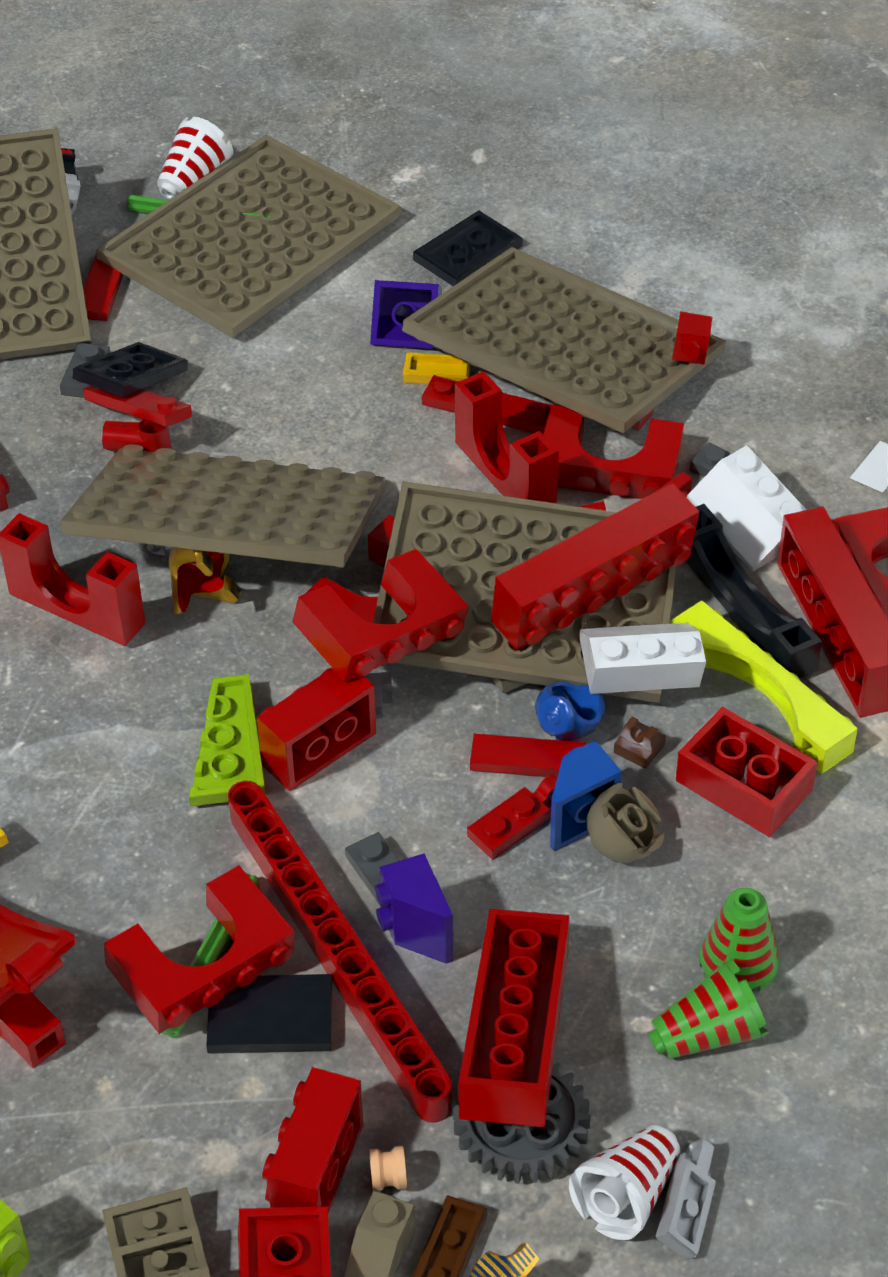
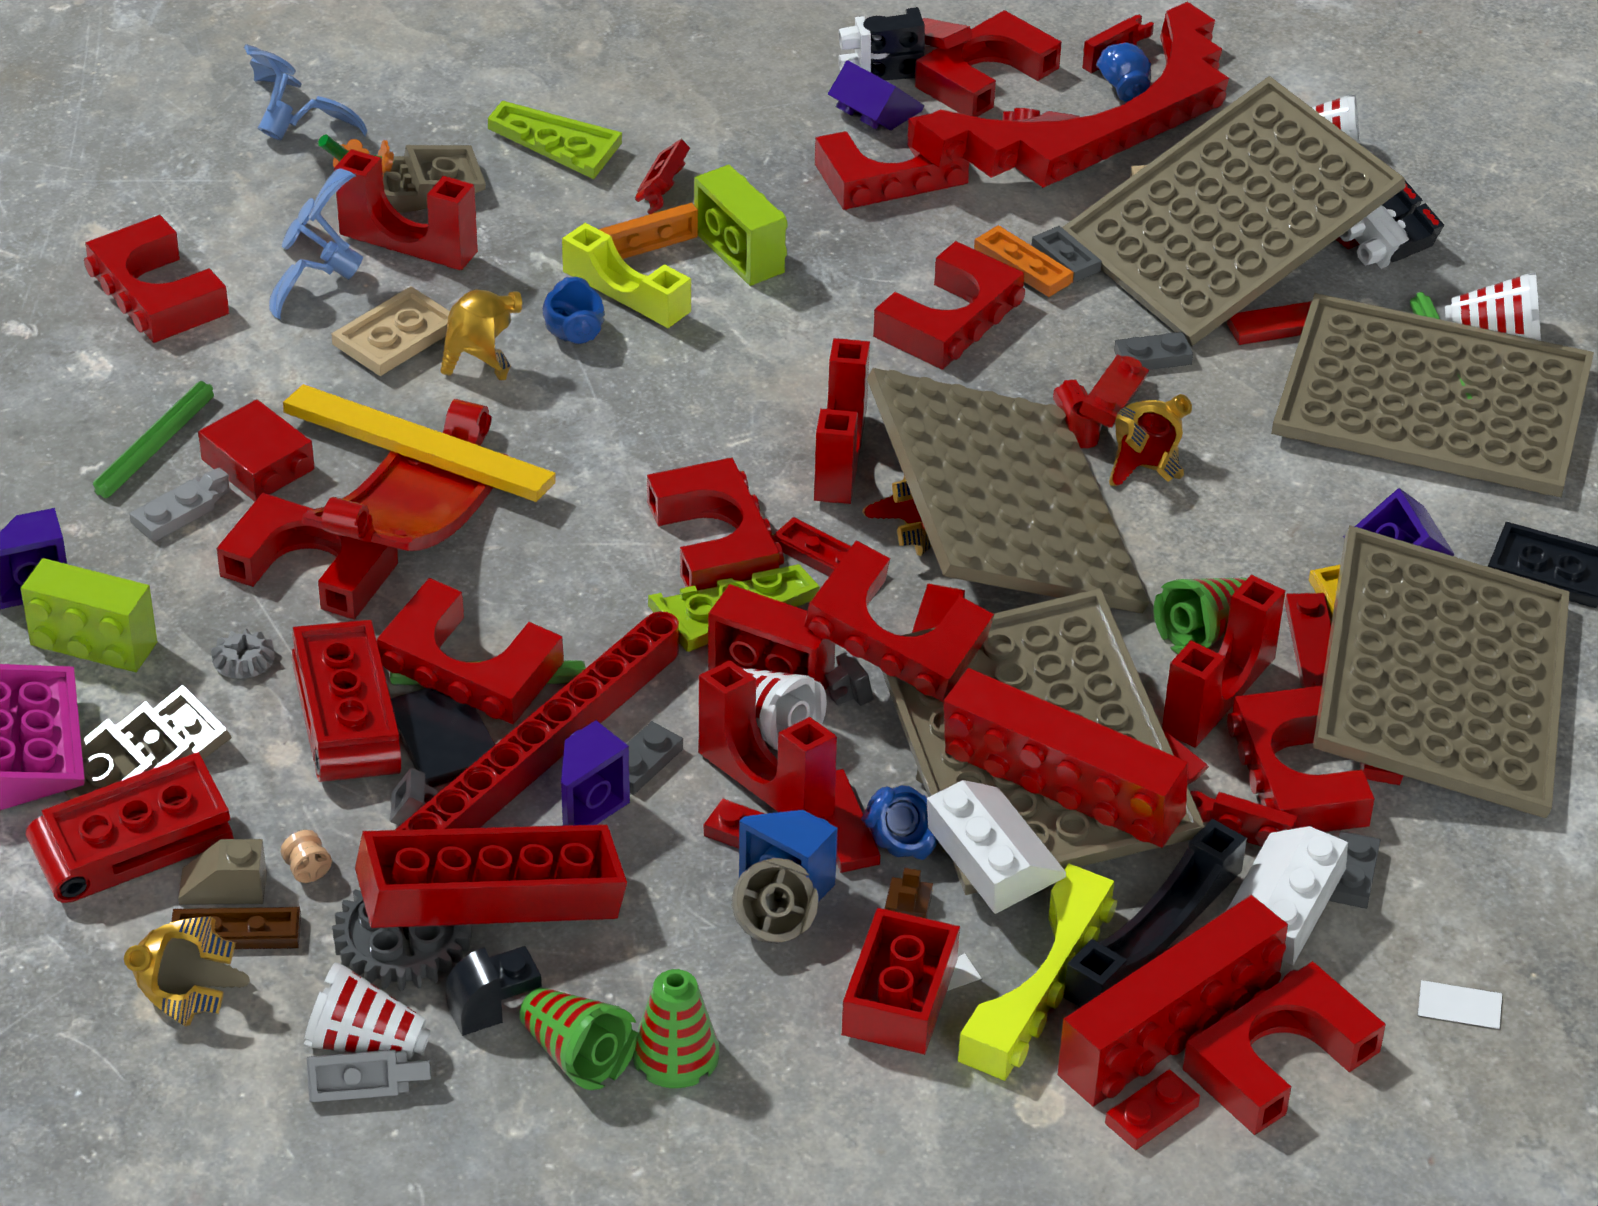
camera: 65 degrees right, 5 degrees down
(73, 1165) = (254, 662): none -> light grey gear
(86, 701) = (718, 493): none -> red arch
(130, 369) = (1159, 371): black tile -> none
(199, 660) = (810, 545): none -> red tile
(203, 1073) = (345, 701): none -> red hinge
(208, 407) = (1150, 438): none -> piece
(315, 1141) = (292, 791): red brick -> none
(353, 1059) = (410, 796): none -> flat silver tile
(378, 753) = (785, 700): none -> white cone
(428, 447) = (1194, 610): none -> bright green cone
(498, 767) = (732, 741): none -> red arch
(631, 1065) = (482, 982): none -> black brick
(692, 338) = (1506, 763): red brick -> none

